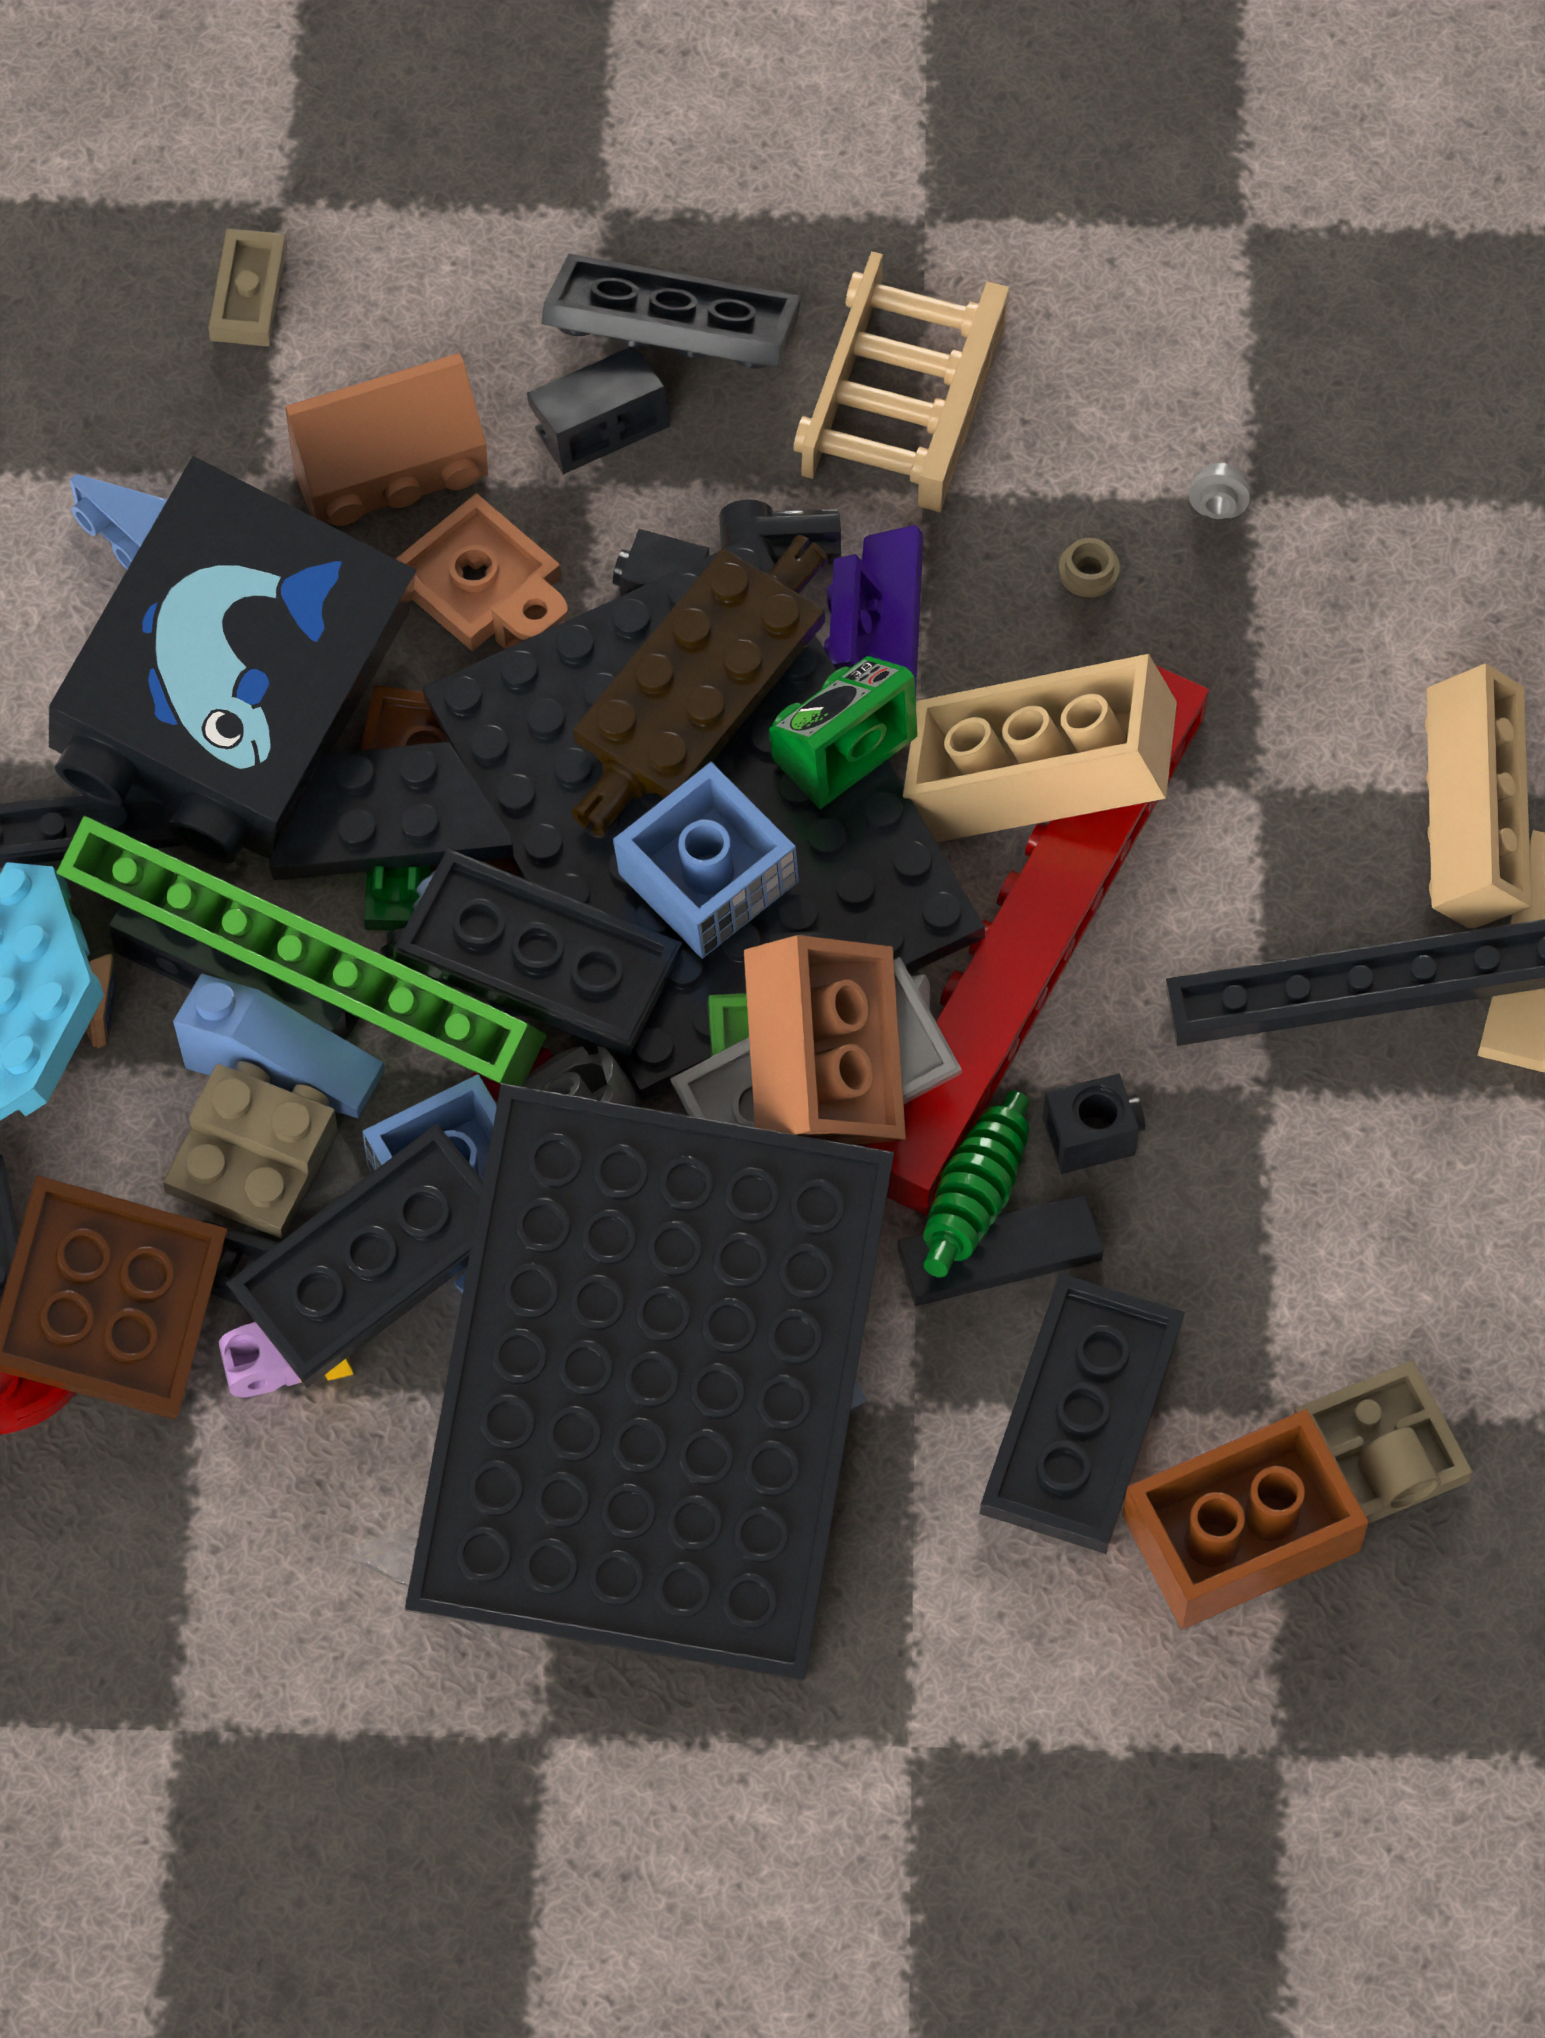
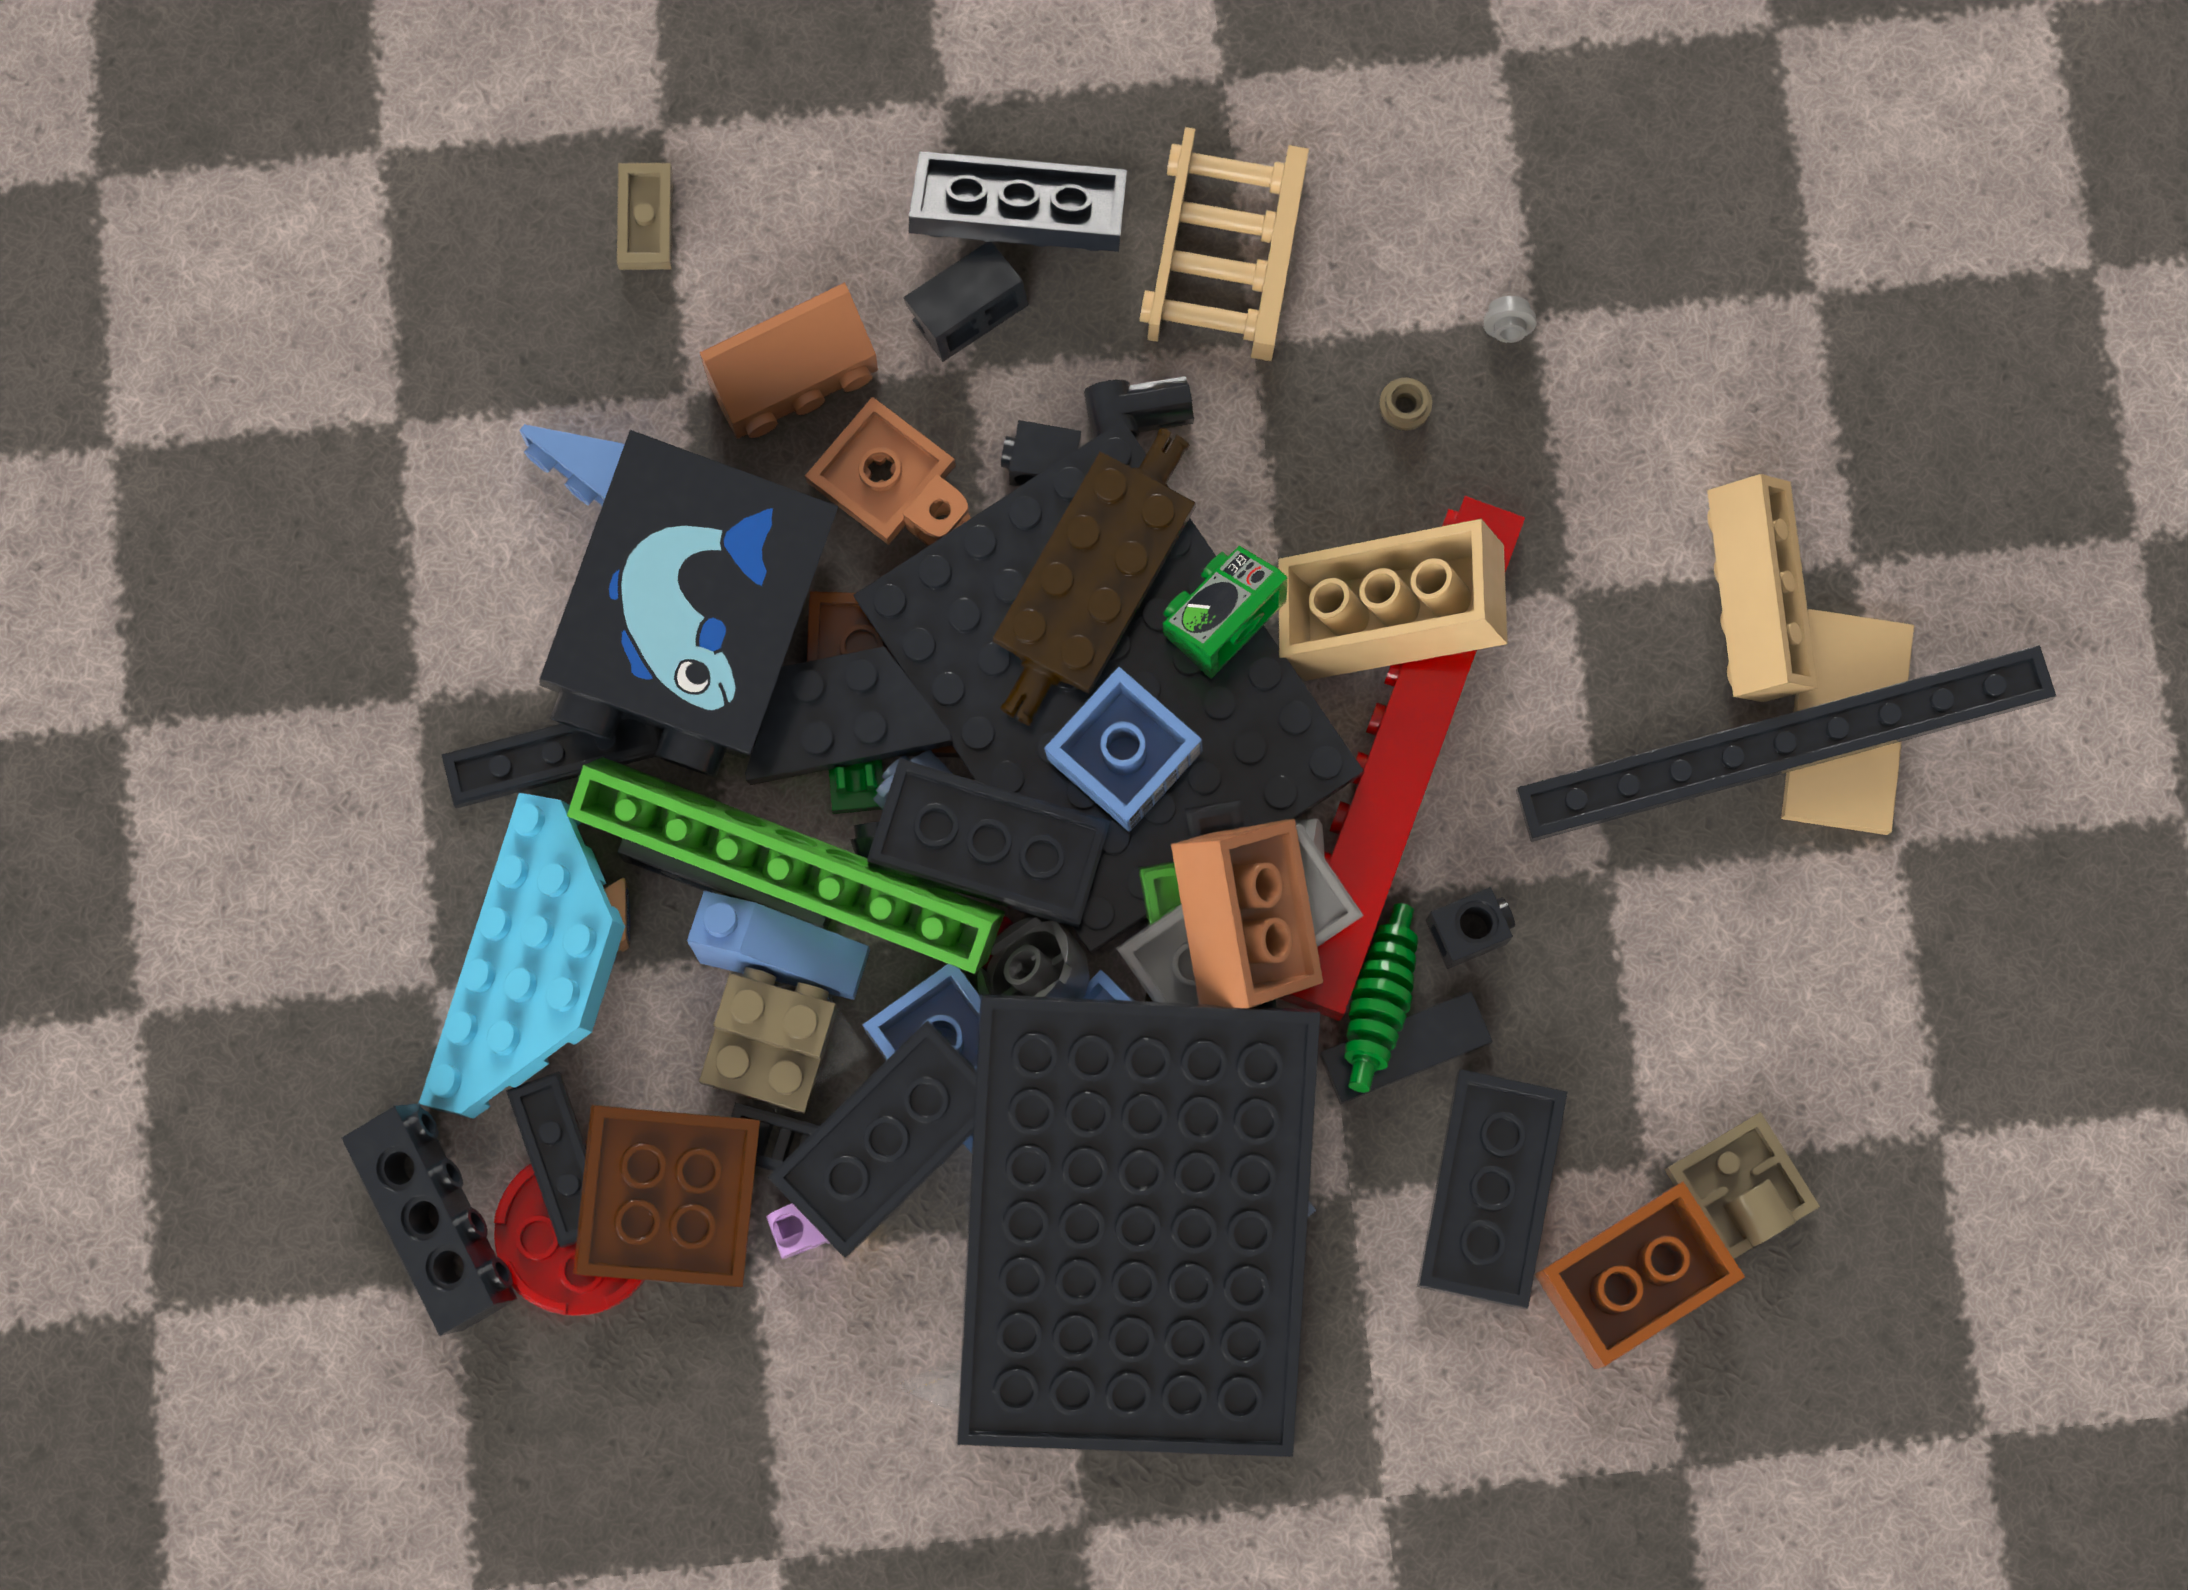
camera: 10 degrees left, 15 degrees up
(877, 601) = (1233, 475): dark purple bracket -> none

